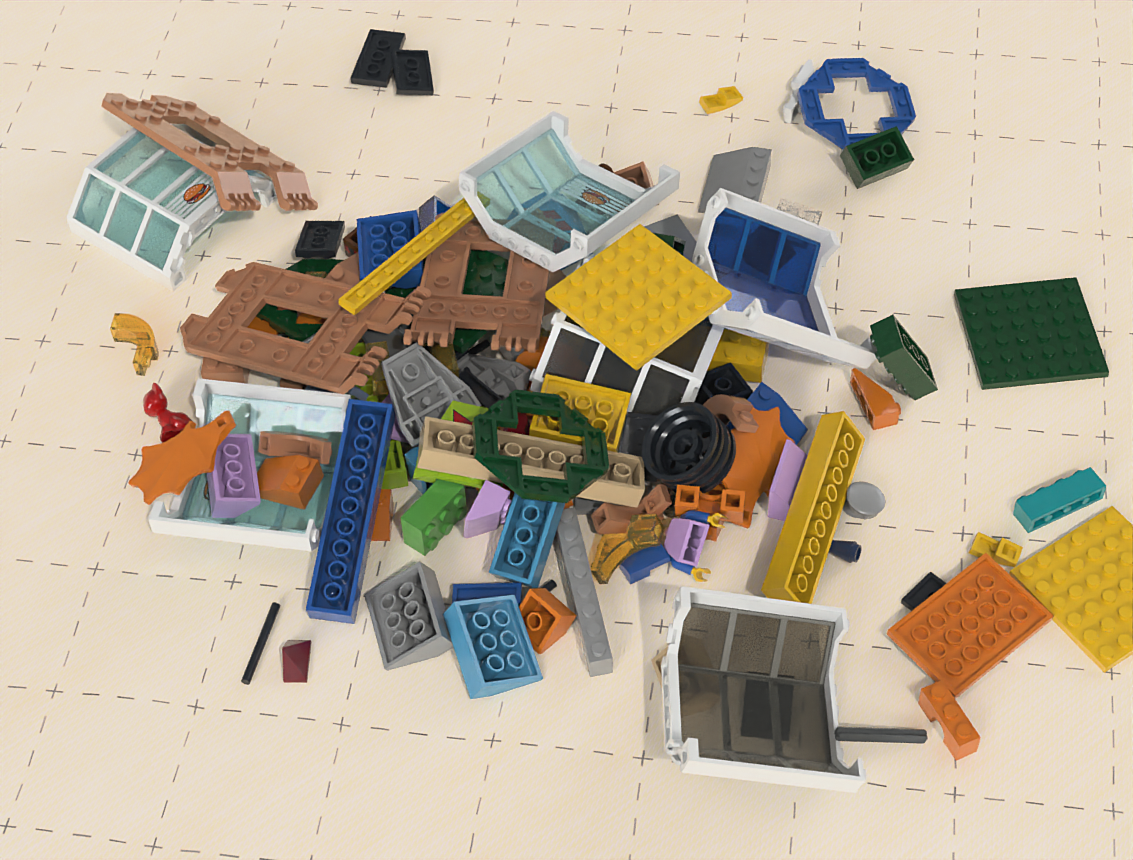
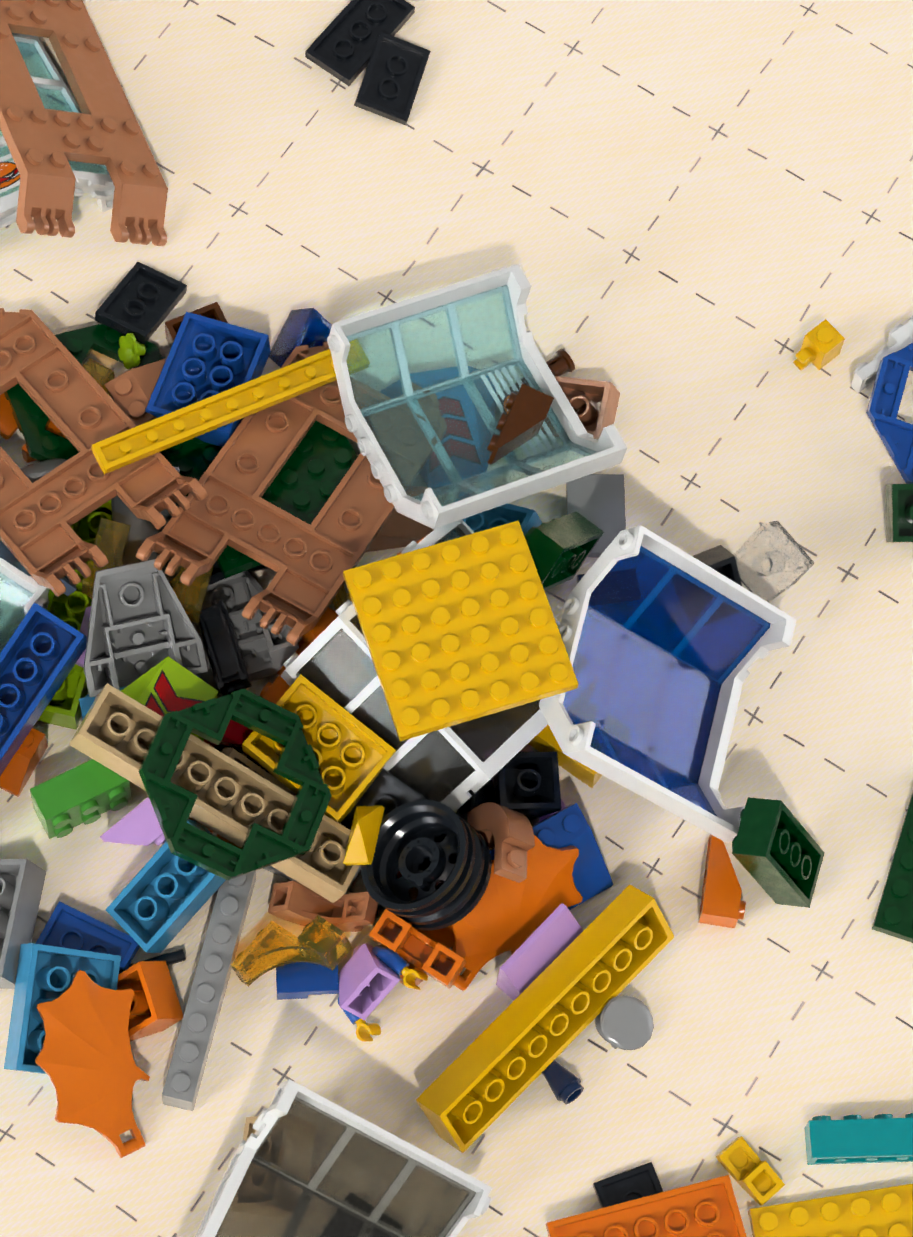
camera: 15 degrees right, 15 degrees up
(327, 262) = (130, 351): none -> lime plant
(531, 663) = (92, 1060): none -> orange animal
(601, 196) = (522, 423): none -> reddish brown slope
(638, 450) = (363, 835): none -> yellow slope
(725, 98) = (785, 313): yellow slope -> none
(739, 172) = (728, 461): light grey slope -> none
(755, 105) = (819, 346): none -> yellow brick

